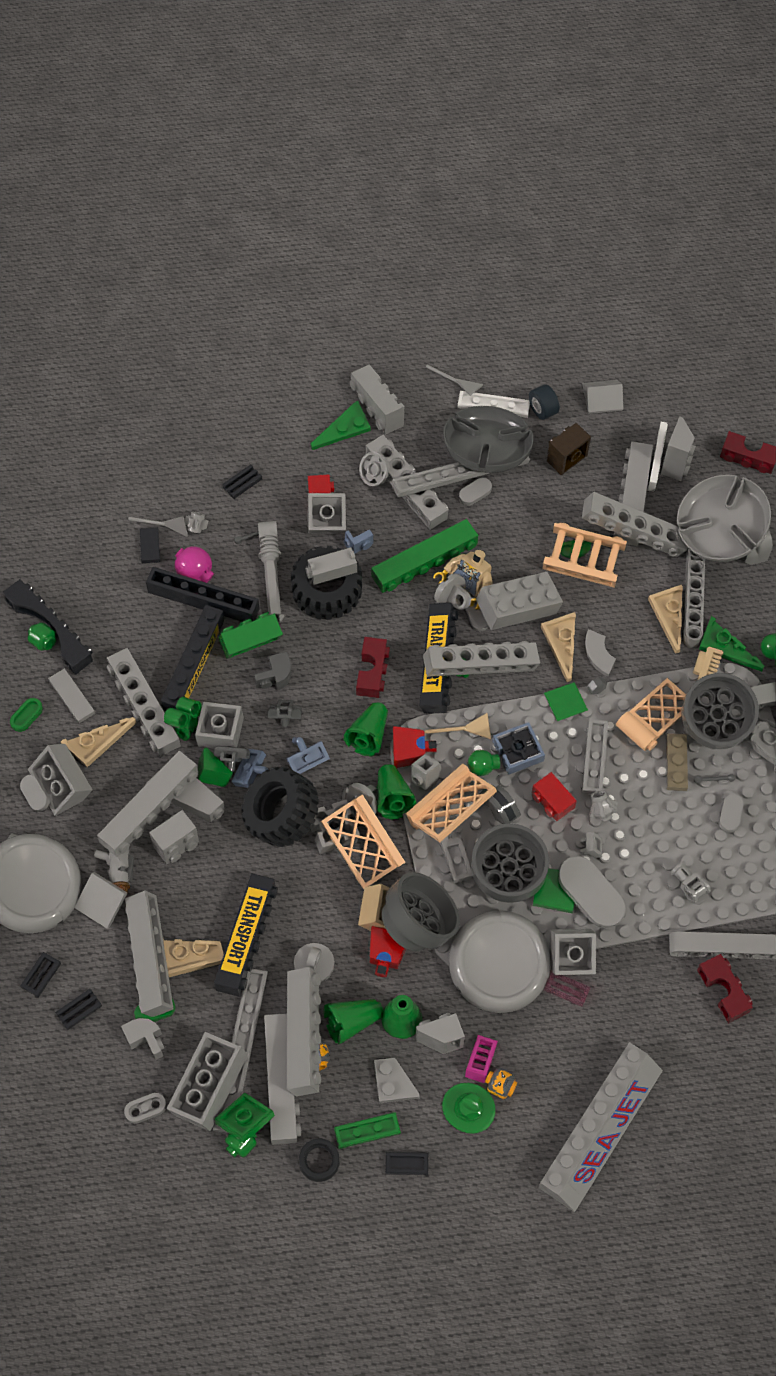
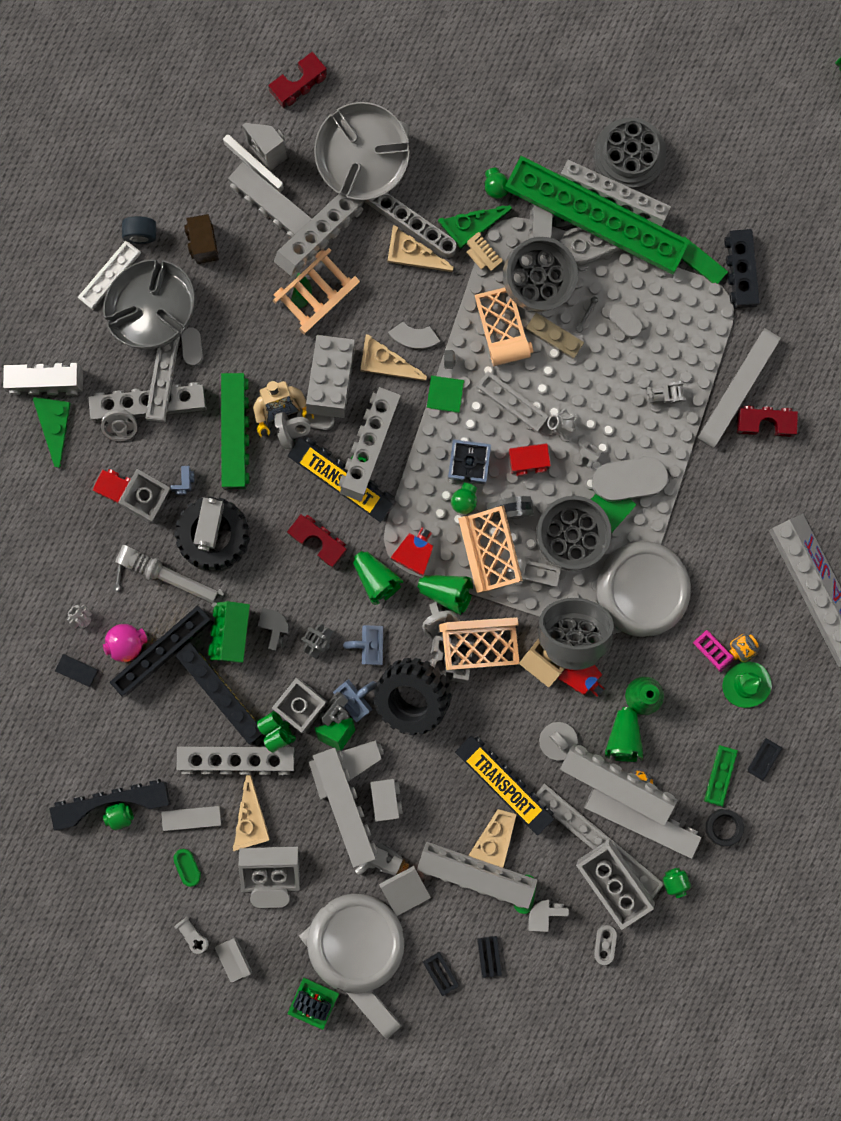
camera: 60 degrees left, 20 degrees up
(176, 524) = (71, 636): light grey piece -> none
(244, 1117) = (662, 870): green tile -> none
(252, 472) = (65, 550): black tile -> none
(393, 1082) = (693, 733): light grey wing -> none
(425, 771) = (447, 553): light grey brick -> none
(441, 1034) = (682, 672): light grey slope -> none
(469, 387) = (77, 286): light grey piece -> none
(479, 727) = (426, 482): tan piece -> none
(549, 989) = (708, 538): clear pink tile -> none
(573, 951) = (673, 526): light grey brick -> none
(603, 396) = (159, 170): light grey slope -> none

